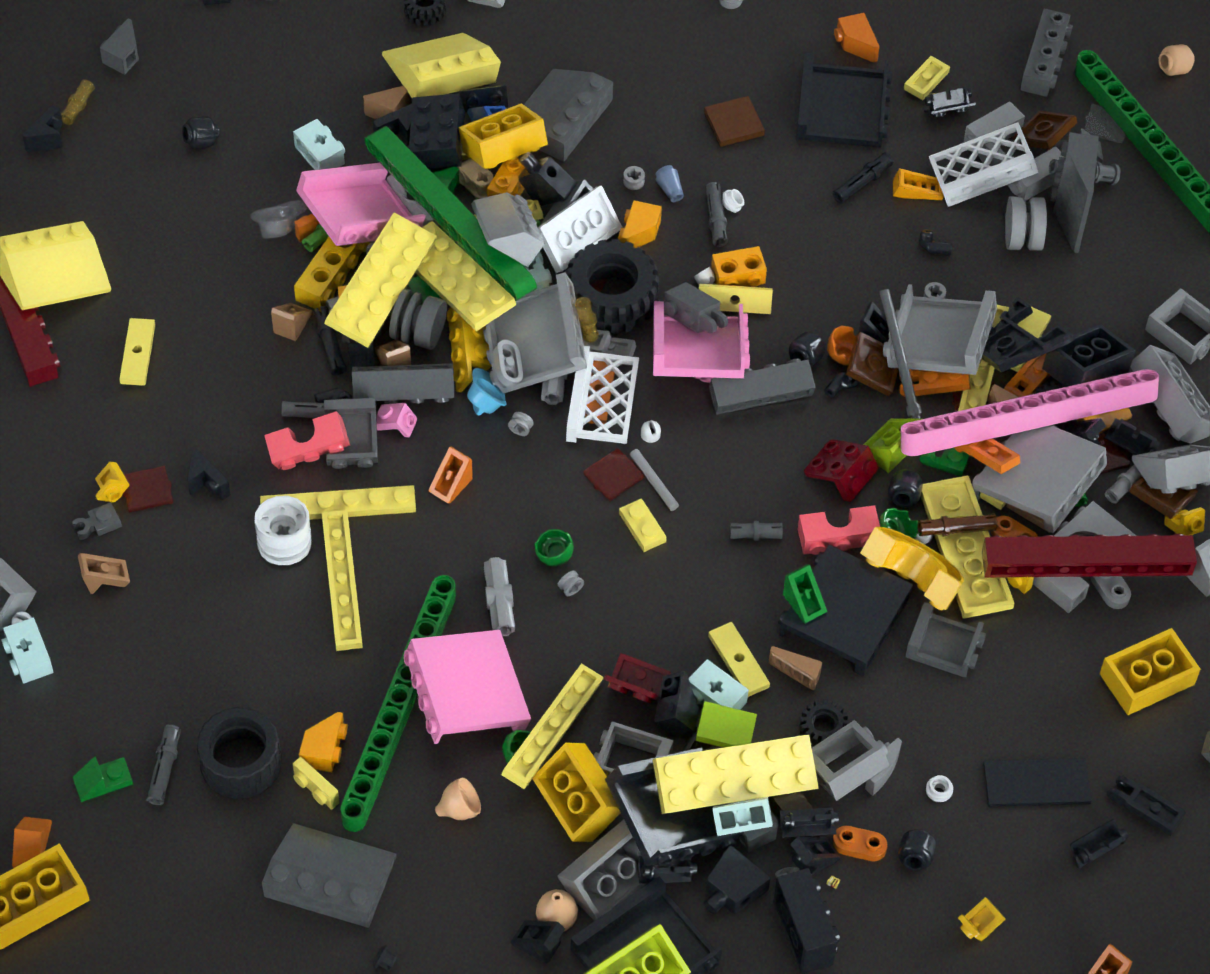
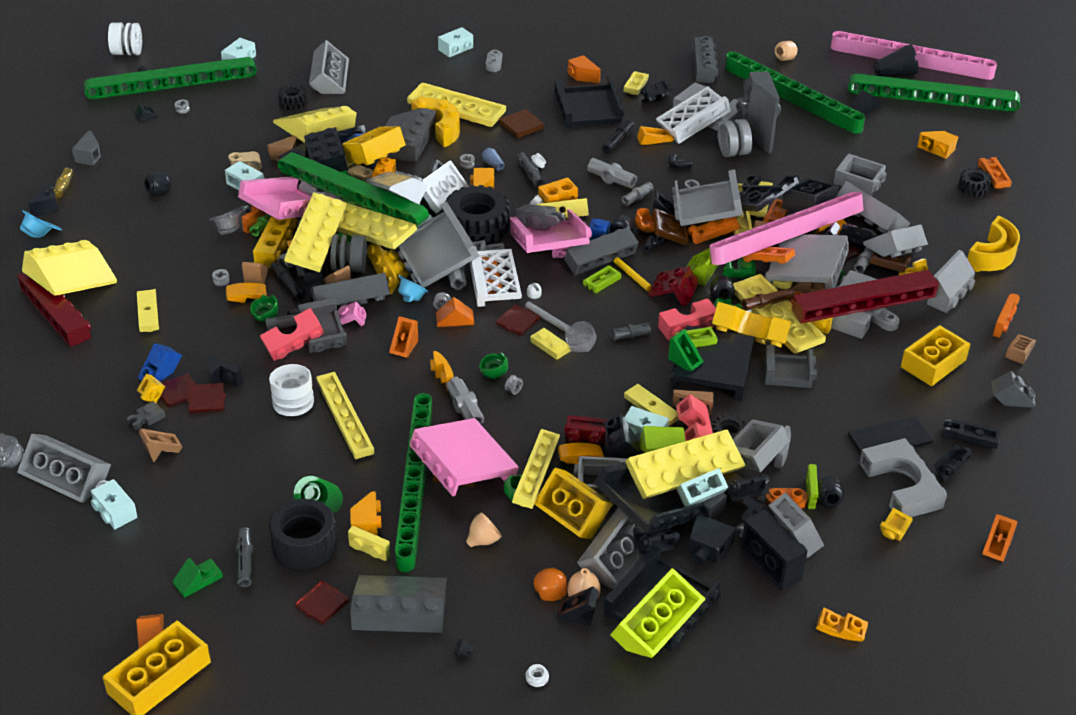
camera: 15 degrees left, 15 degrees down
(28, 175) = (36, 227): none -> medium azure piece
(132, 444) = (160, 362): none -> blue slope
(178, 510) = (206, 397): none -> clear red piece
(239, 849) = (322, 602): none -> clear red piece
(240, 310) = (220, 277): none -> light grey bush
(265, 347) = (241, 291): none -> light orange slope
(273, 699) = (319, 490): none -> green piece
(286, 383) = (264, 308): none -> green hair
(332, 115) = (246, 158): none -> tan piece
(357, 501) = (346, 366): light yellow plate -> none
(485, 536) = (441, 368): none -> light orange slope
(508, 363) = (422, 265): light grey plate -> none
(518, 896) = (550, 584): none -> orange hair
(531, 448) = (454, 314): none -> orange slope
(545, 179) = (410, 162): black torso -> none
(587, 319) = (468, 227): clear yellow pin -> none
(620, 710) = (570, 452): none -> light orange slope
(629, 88) = (447, 118): none -> yellow brick
(652, 66) = (469, 107): none -> light yellow plate
(680, 531) = (580, 337): none -> clear piece
(751, 435) = (604, 281): none -> lime tile
(772, 348) = (599, 227): none -> blue slope
(787, 691) = (695, 416): none -> coral arch
(794, 431) = (642, 282): none -> yellow bar
(829, 246) = (612, 173): none -> light grey piece
(834, 575) = (702, 336): none -> lime tile
(848, 899) = (797, 523): none -> light grey window
(852, 291) = (637, 193): none -> light grey pin
(897, 834) = (811, 486): none -> lime tile
(913, 409) = (706, 243): dark grey bar -> none
(939, 782) = (826, 453): white plate -> none
(1032, 820) = (902, 458): none -> light grey arch
(1046, 129) = (728, 90): reddish brown tile -> none

